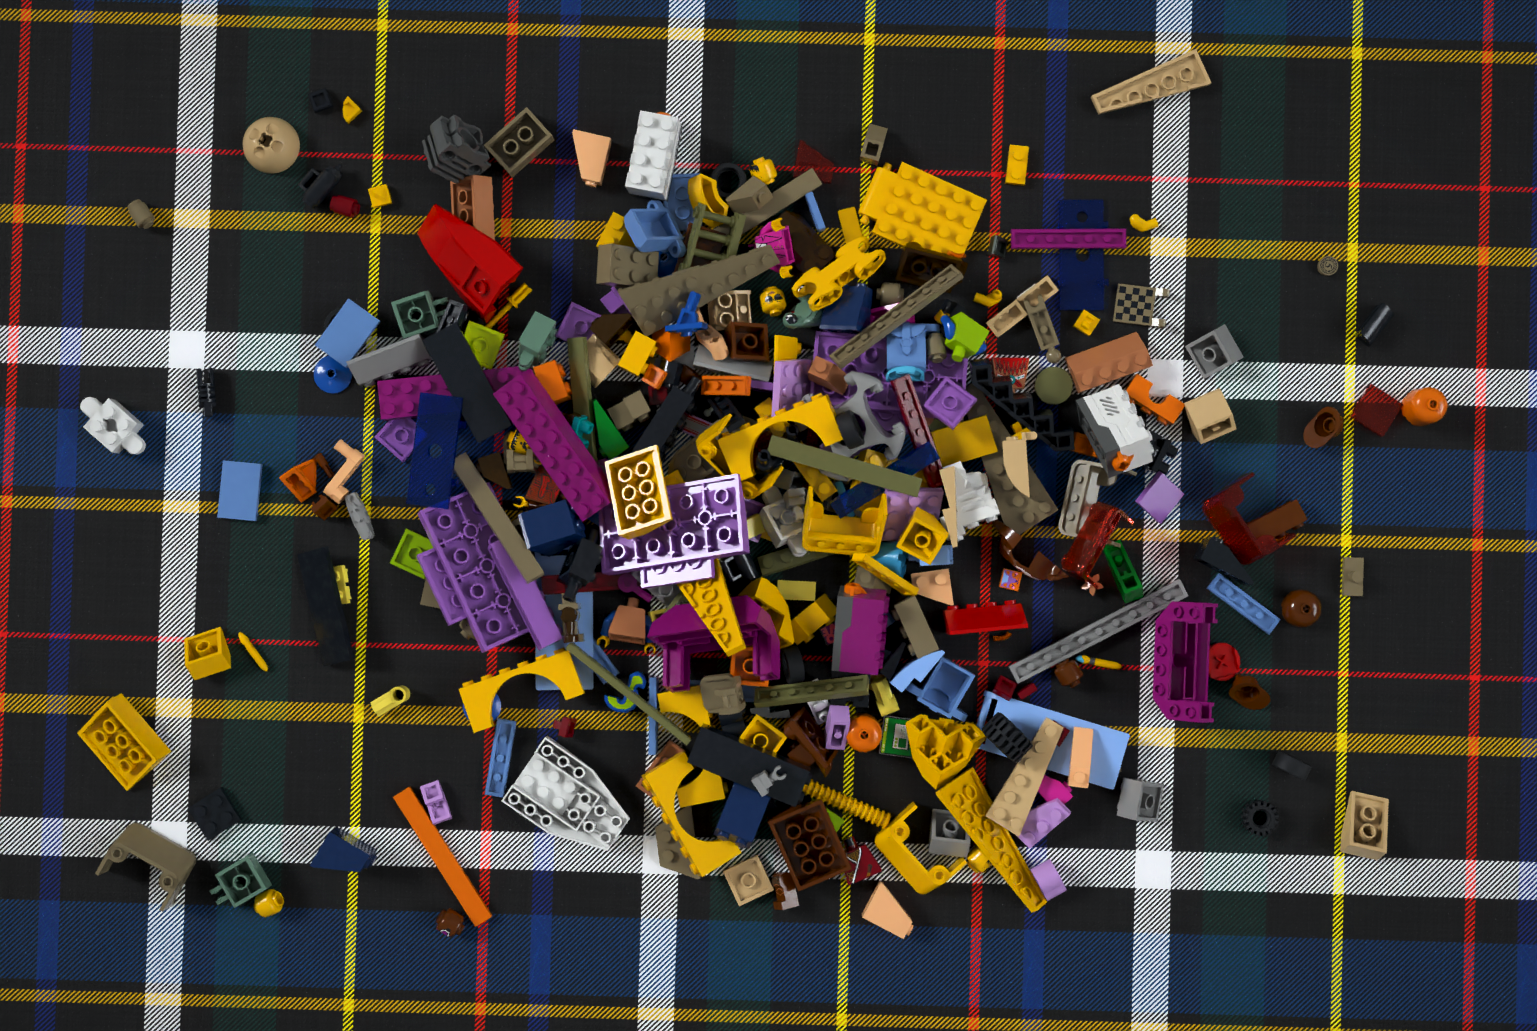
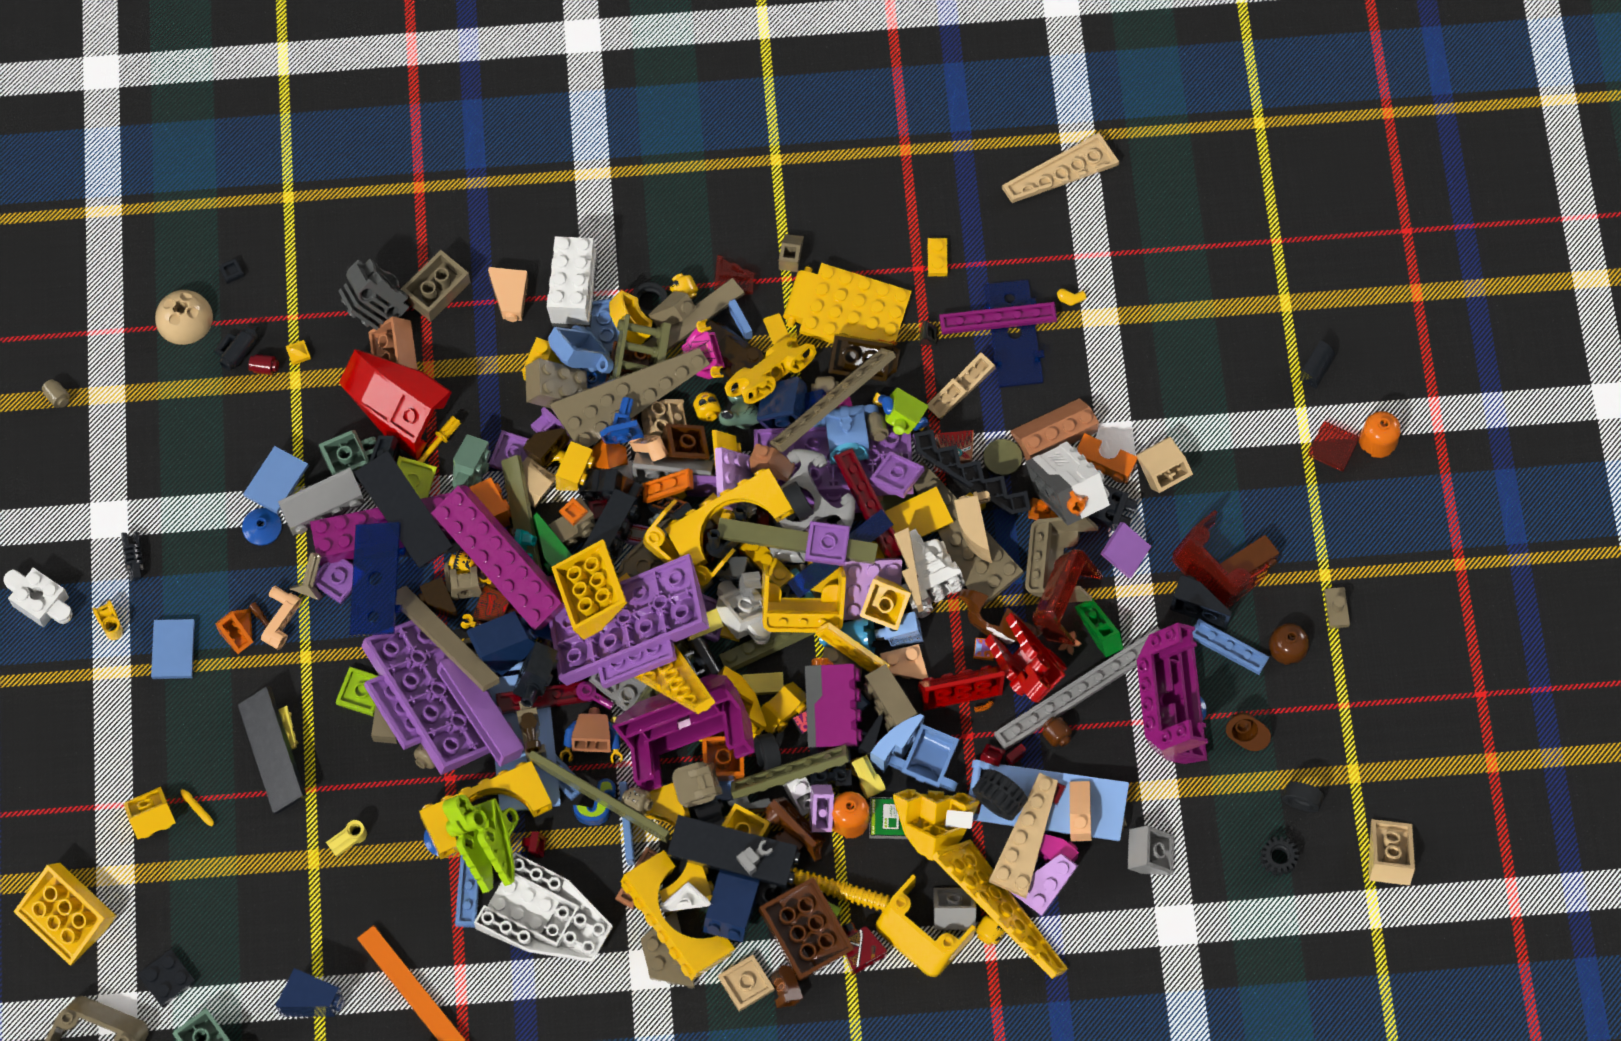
camera: 10 degrees left, 20 degrees down
(177, 452) = (107, 618): none -> yellow piece
(323, 507) = (262, 654): reddish brown tile -> none
(350, 110) = (262, 276): yellow tile -> none
(359, 516) = (300, 658): light grey hinge -> none
(371, 442) = (307, 587): none -> dark tan piece
(436, 802) = (403, 939): lavender slope -> none
(520, 721) = (486, 838): none -> lime piece
(631, 406) = (573, 511): none -> orange tile
(654, 376) = (594, 486): orange tile -> none
(664, 702) = (637, 799): none -> dark tan head
(701, 803) = (685, 898): none -> white tile
(873, 474) = (827, 543): none -> medium lavender tile
(878, 308) = (813, 397): none -> clear blue tile
(887, 912) = (898, 997): light nougat slope -> none
(965, 752) = (959, 819): none -> white sticker
(990, 299) = (926, 384): yellow arm -> none
(1043, 329) = (984, 403): dark tan plate -> none
(1048, 879) = (1065, 942): lavender piece -> none
(1050, 611) = (1032, 667): none -> red piece
(1086, 322) = (1027, 395): yellow tile -> none
(1098, 662) = (1087, 720): yellow piece -> none
(1136, 305) = (1075, 373): dark tan flag -> none
(1214, 351) = (1160, 406): light grey slope -> none
(1223, 661) = (1216, 705): red tile -> none
(1323, 427) = (1284, 463): reddish brown piece -> none
(1327, 266) = (1262, 317): dark tan tile -> none

